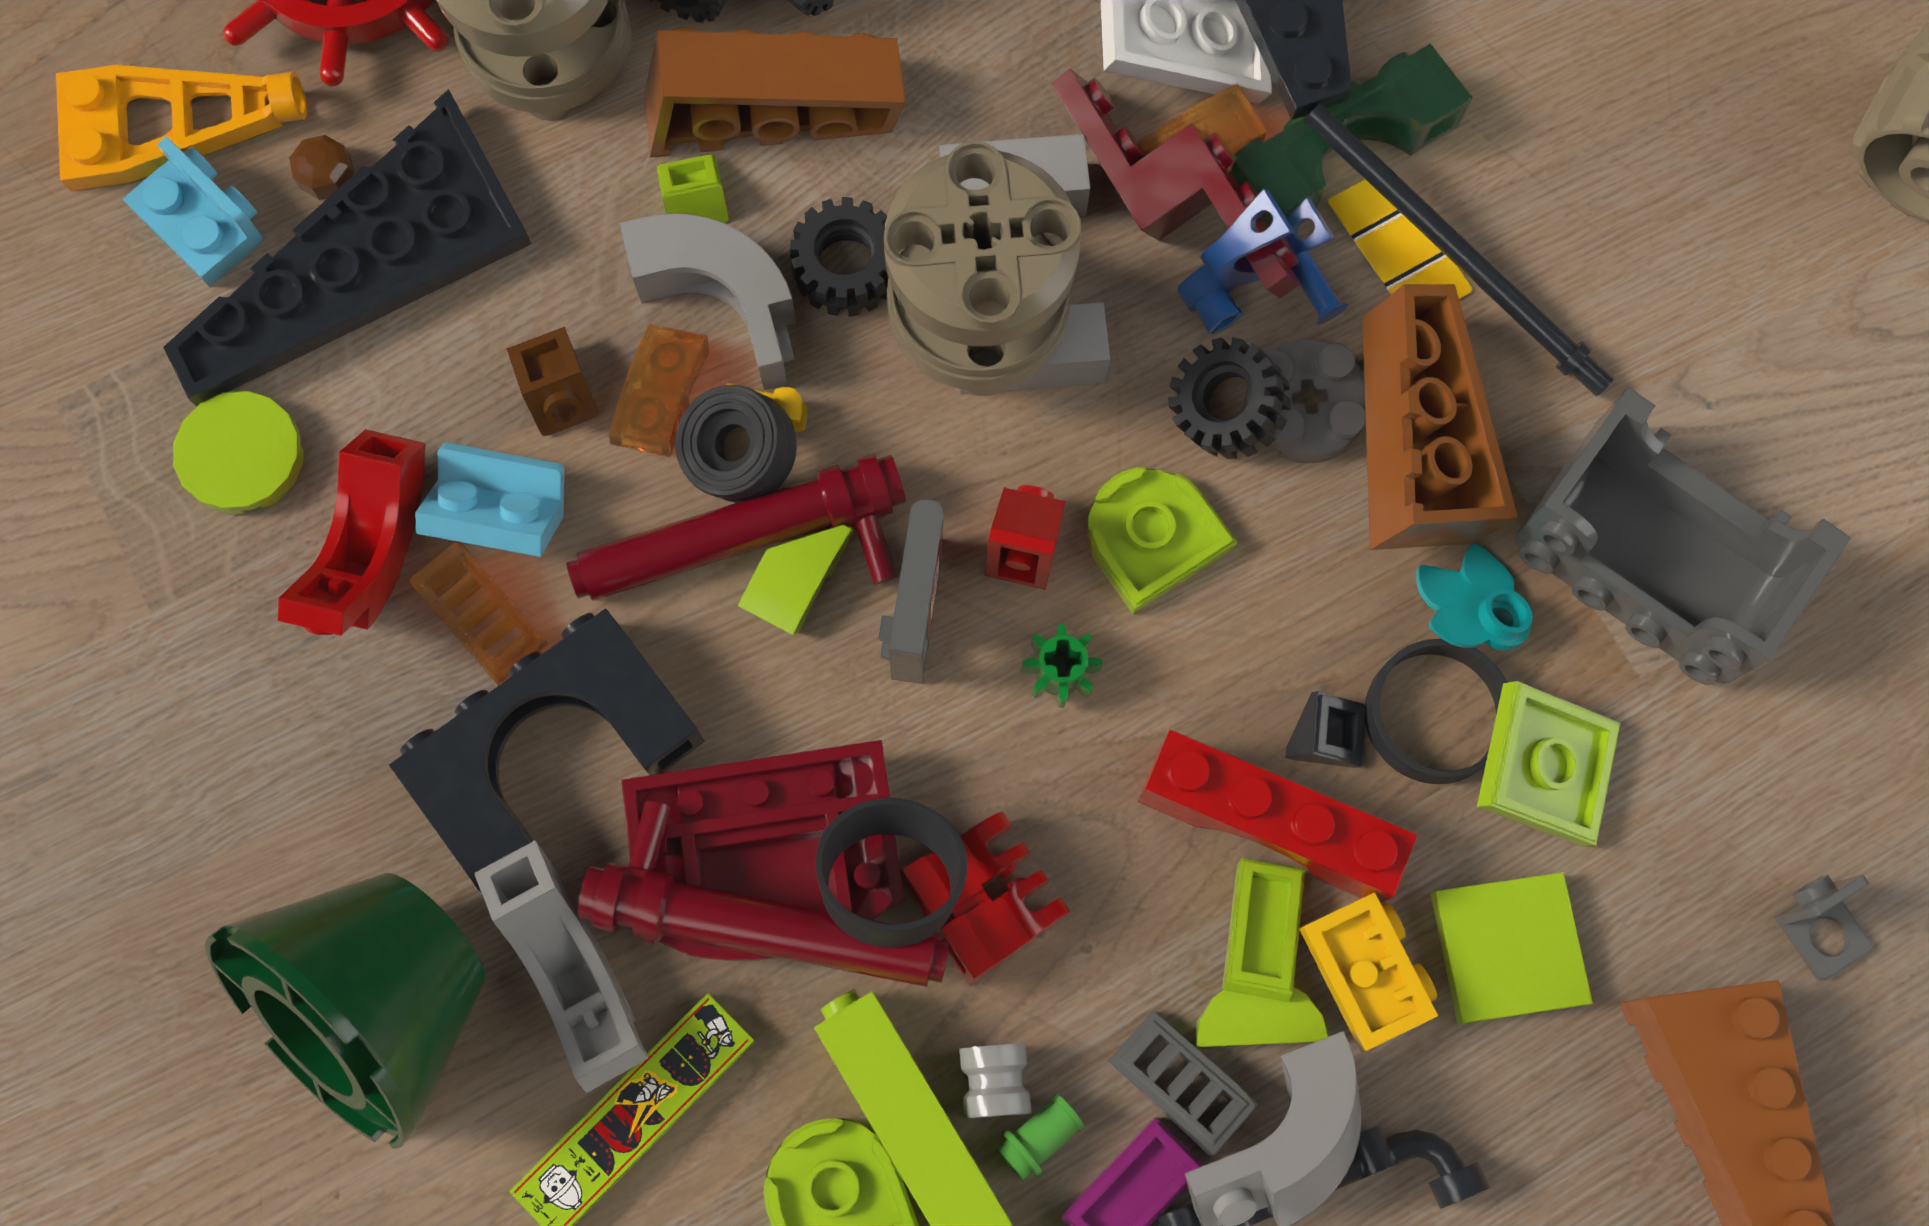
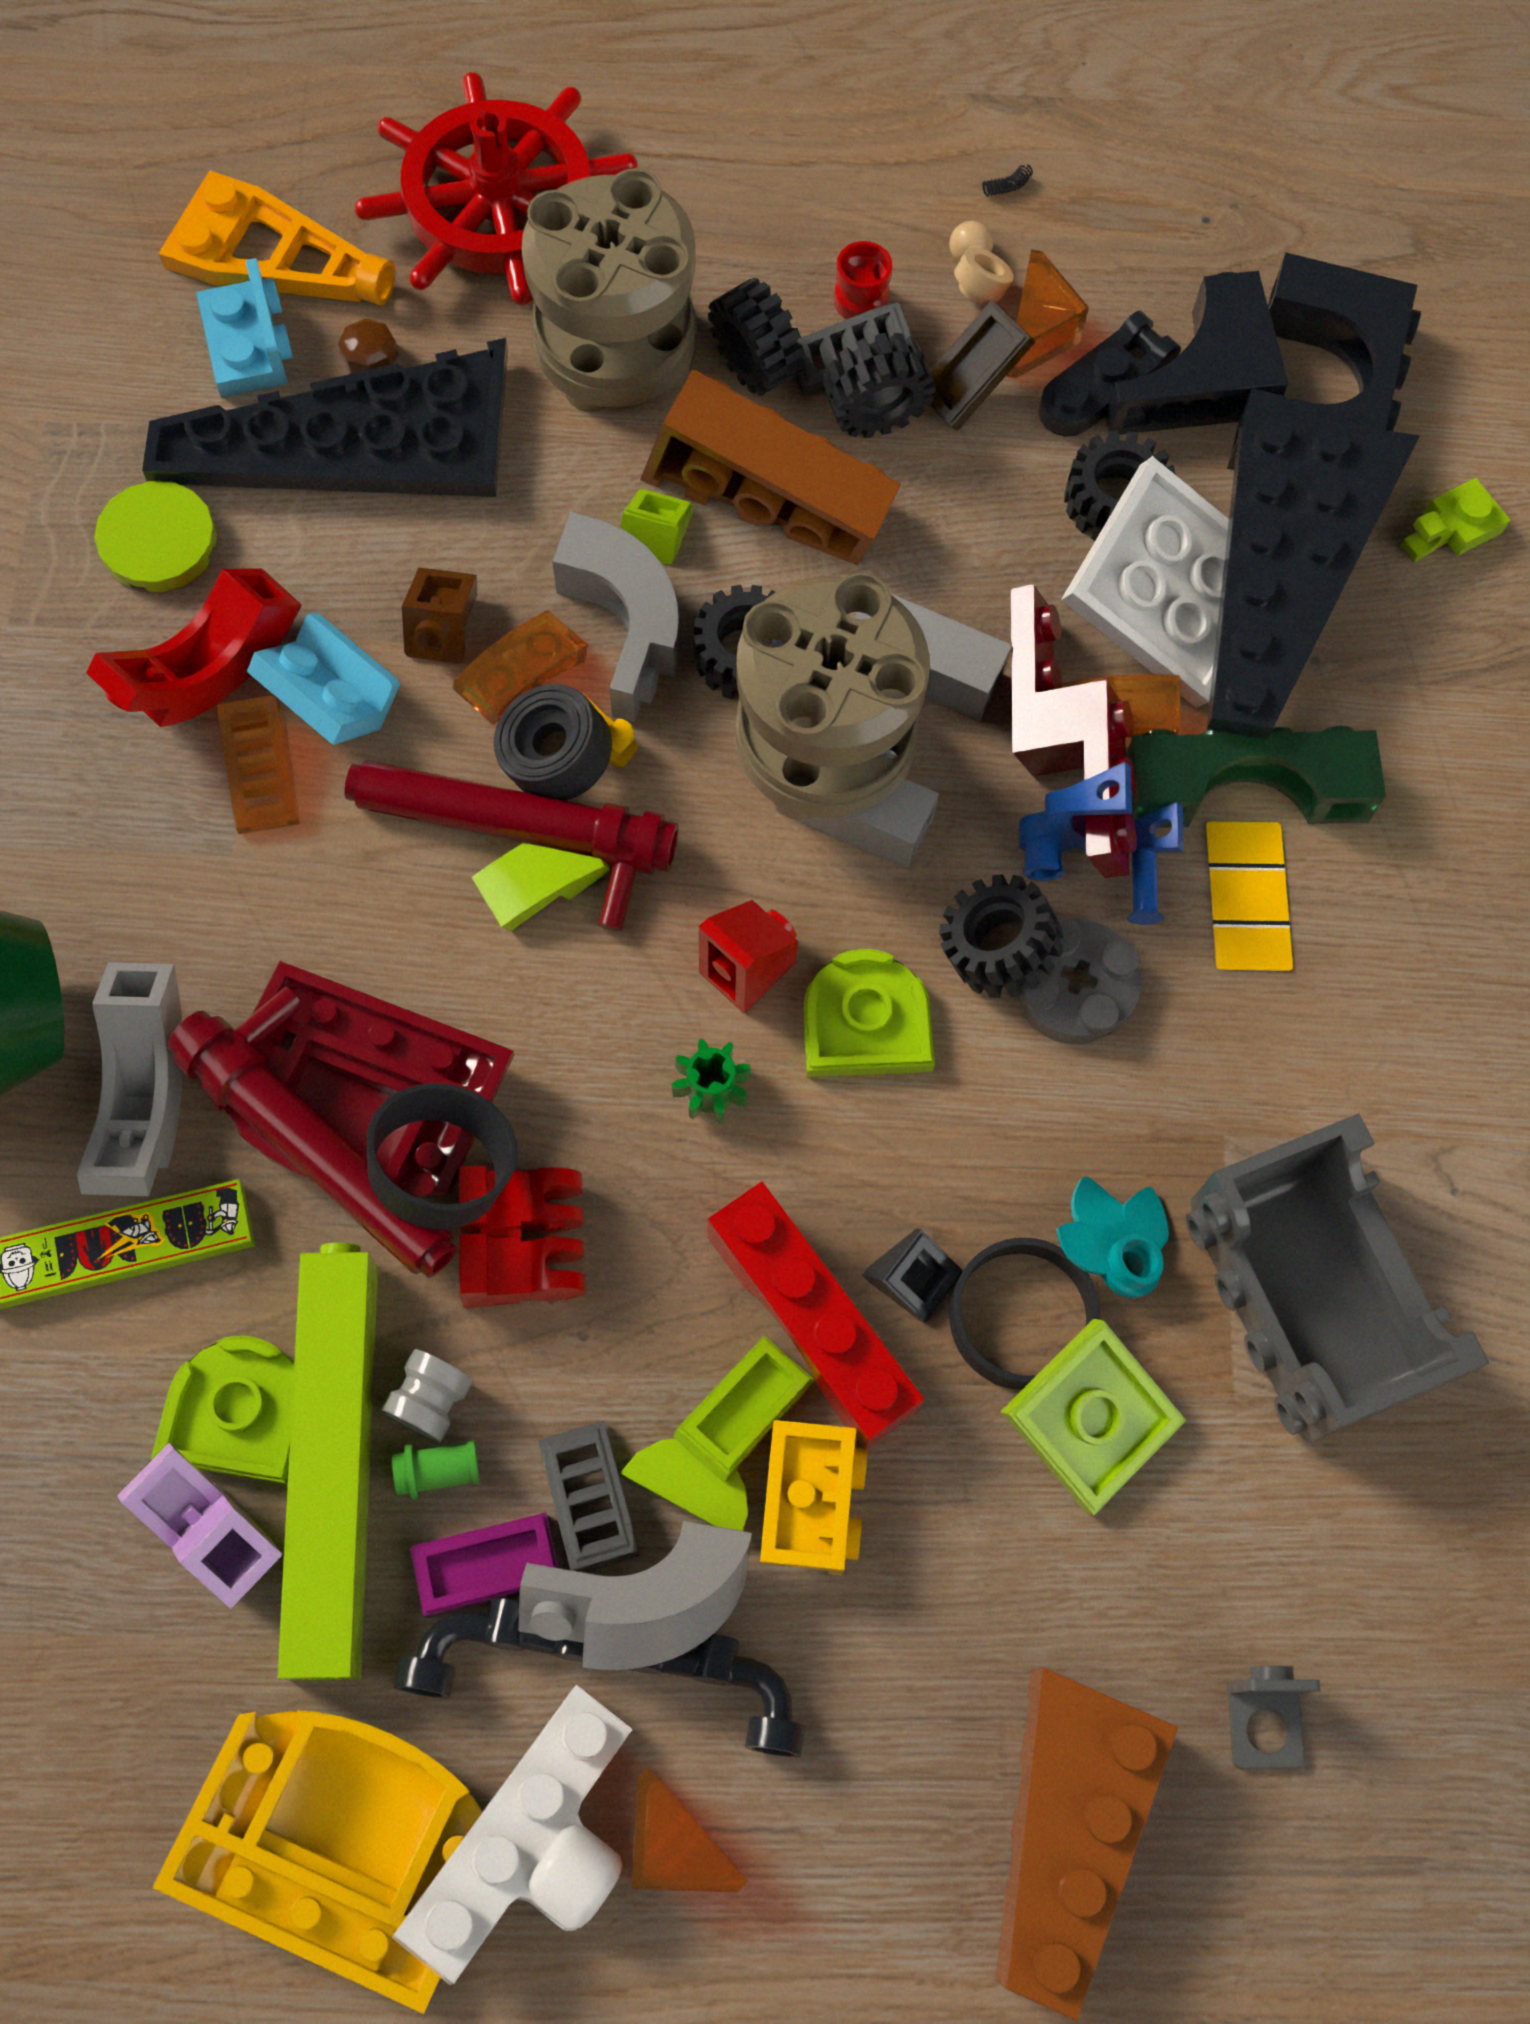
camera: 30 degrees right, 5 degrees down
(457, 766) = (159, 877): black arch -> none
(908, 632) = (619, 946): dark grey container -> none
(1428, 426) = (1164, 1059): dark orange wedge -> none
(1510, 948) = (958, 1560): lime tile -> none
(1572, 357) = (1344, 1072): black bar -> none

